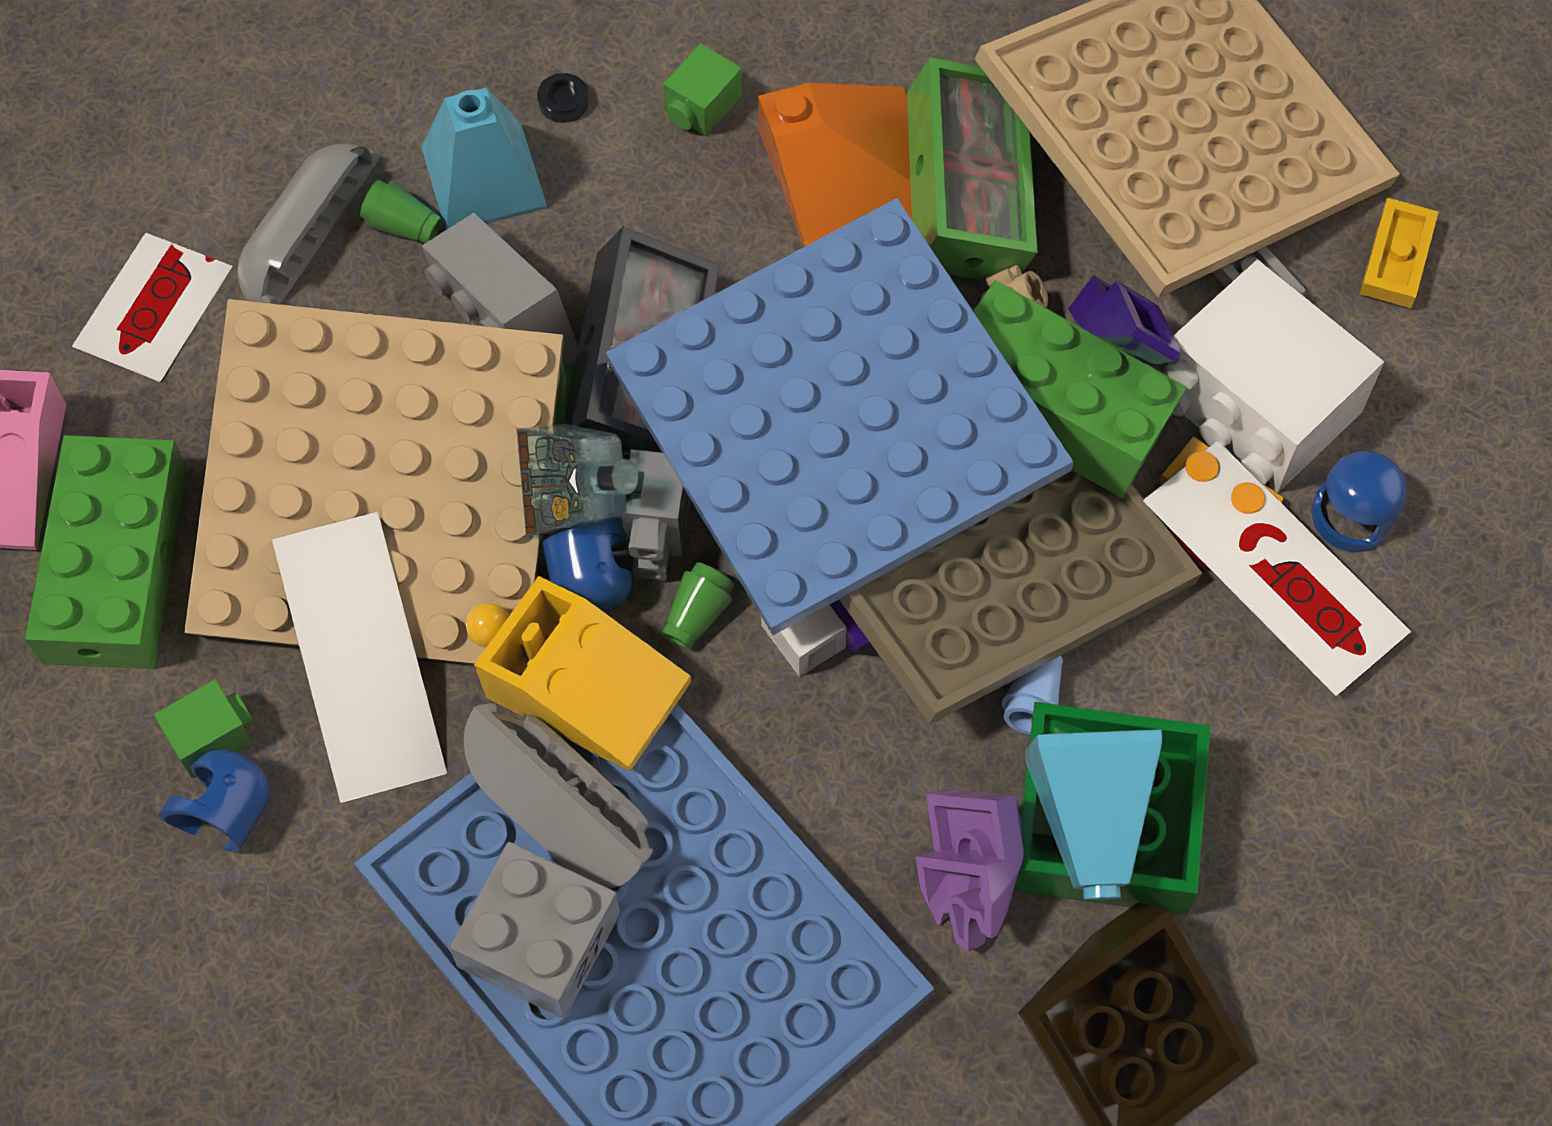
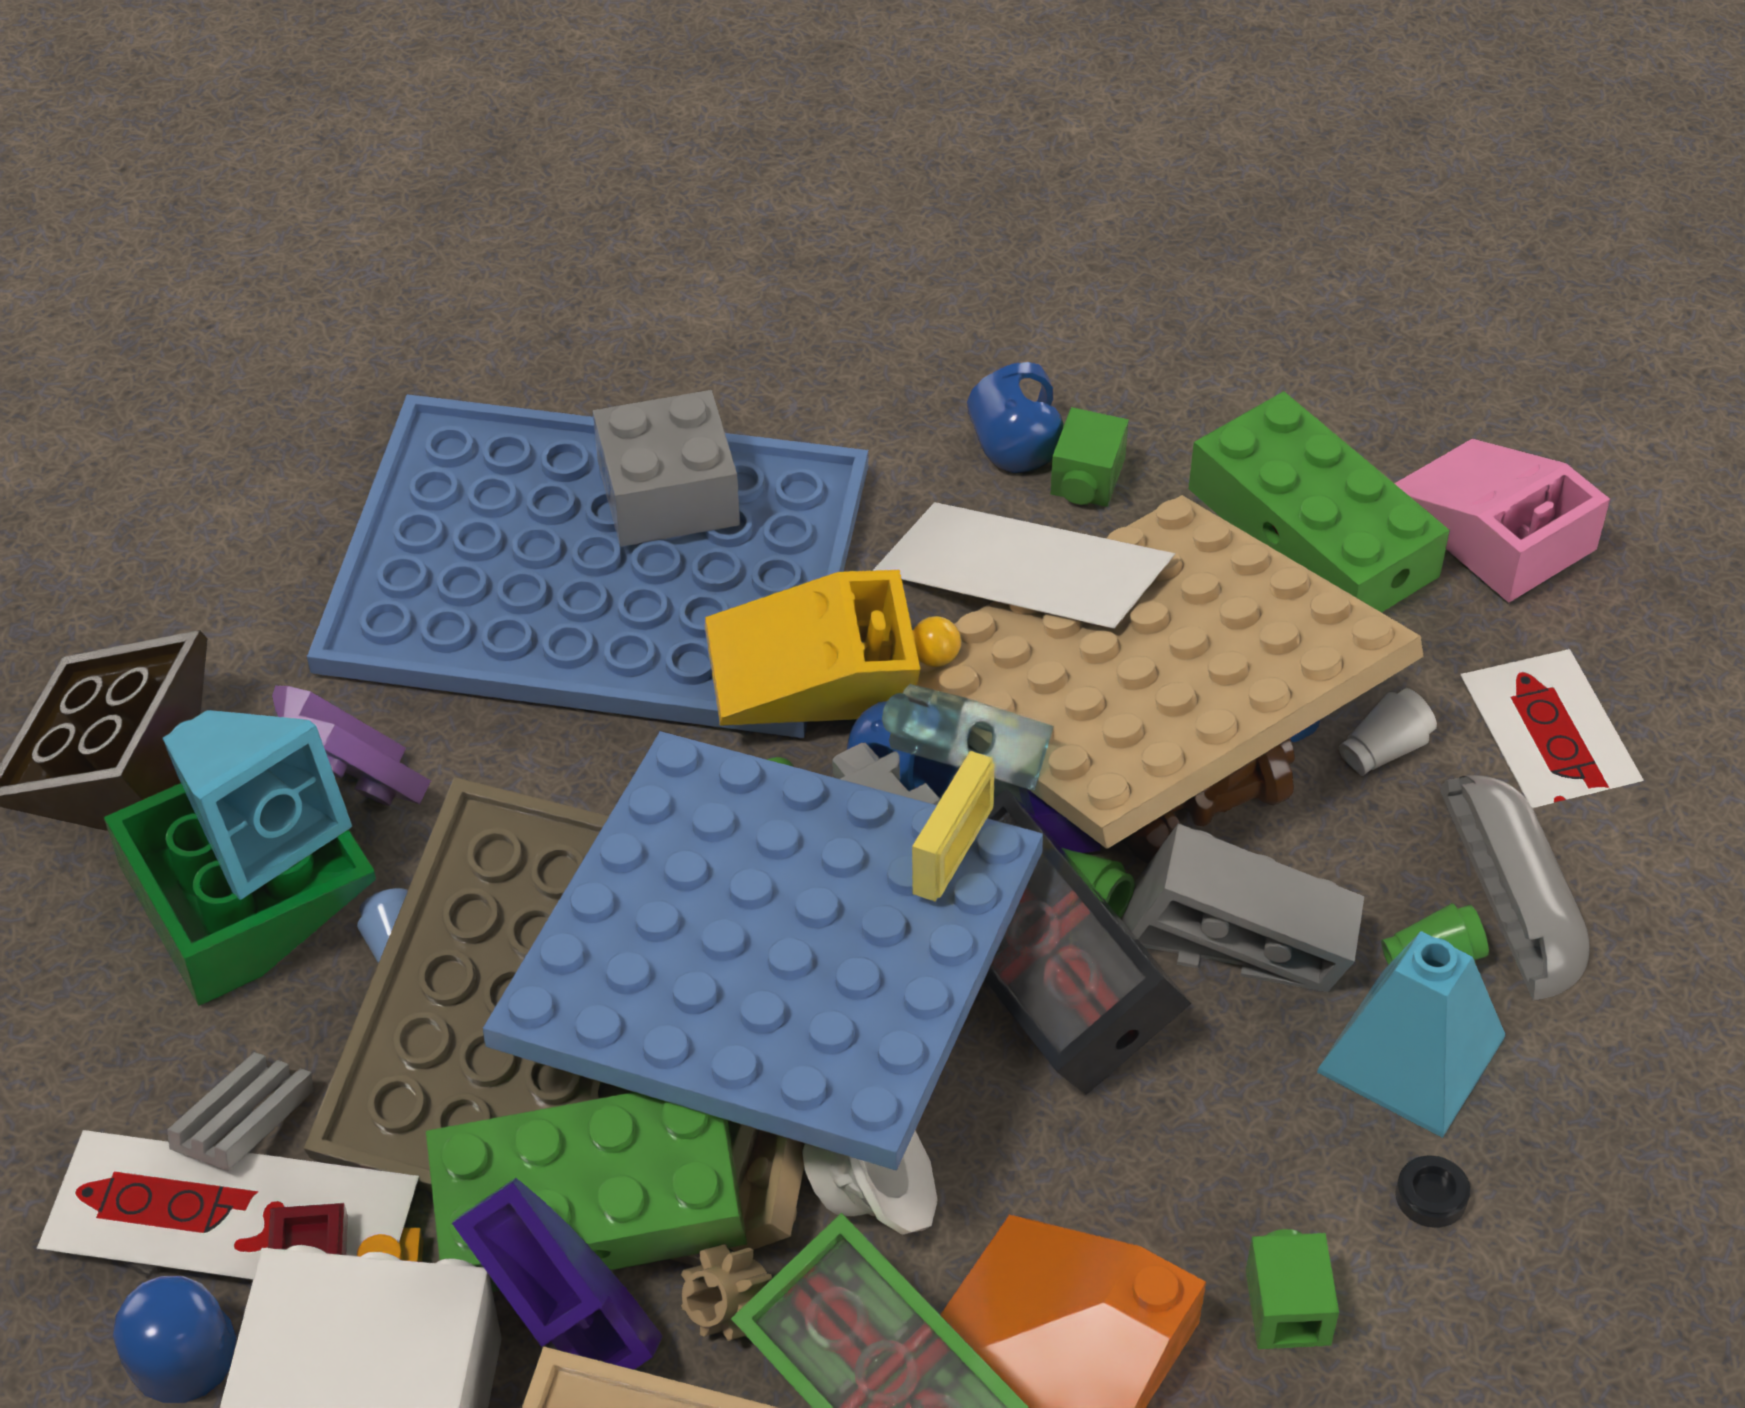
camera: 140 degrees right, 15 degrees down
(556, 796) = (731, 563): light grey brick -> none
(675, 356) = (953, 826): none -> light yellow tile
(1216, 608) = (231, 1106): none -> light grey tile
(1244, 493) = (310, 1225): none -> dark red tile

